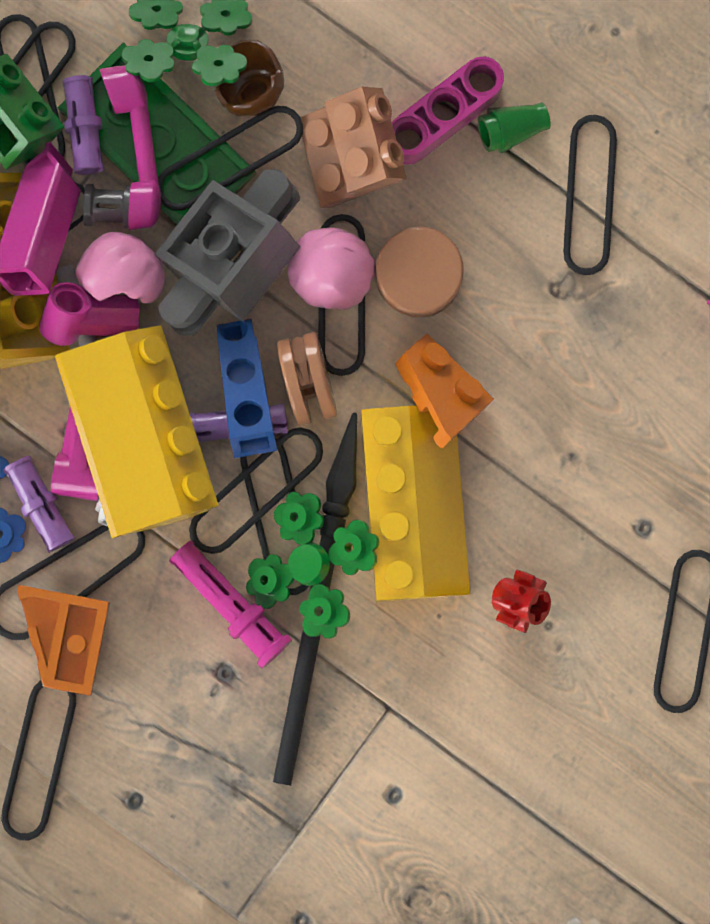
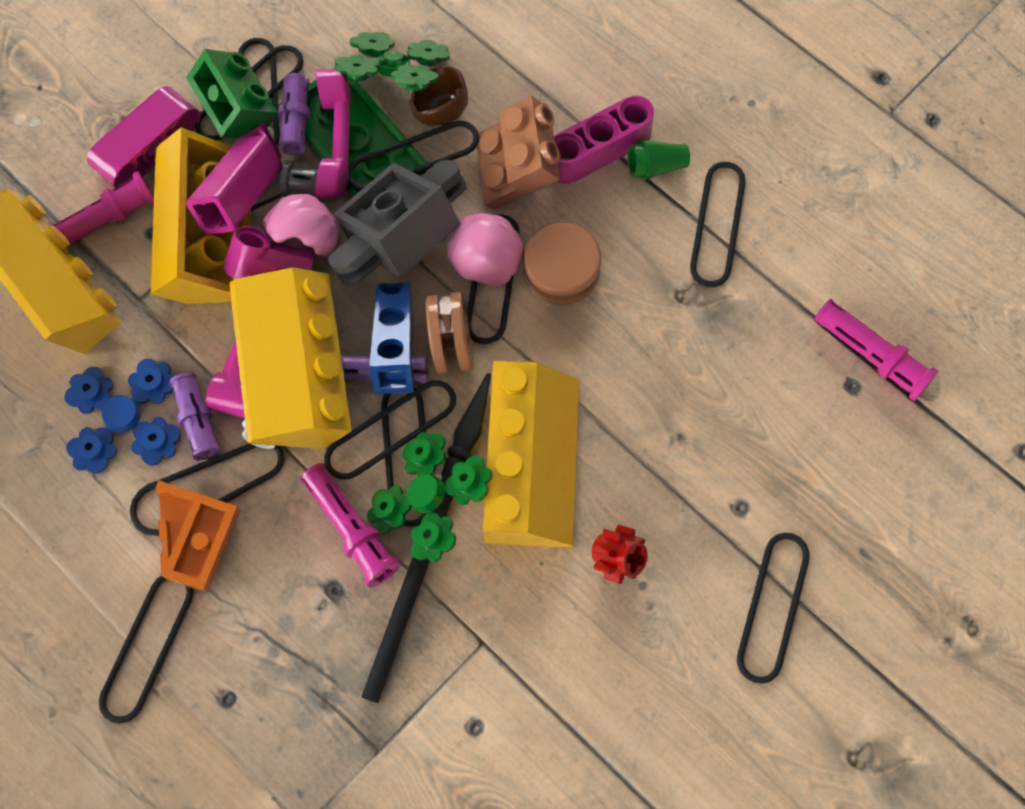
camera: 10 degrees right, 15 degrees down
(442, 388) = (576, 364): orange wing -> none

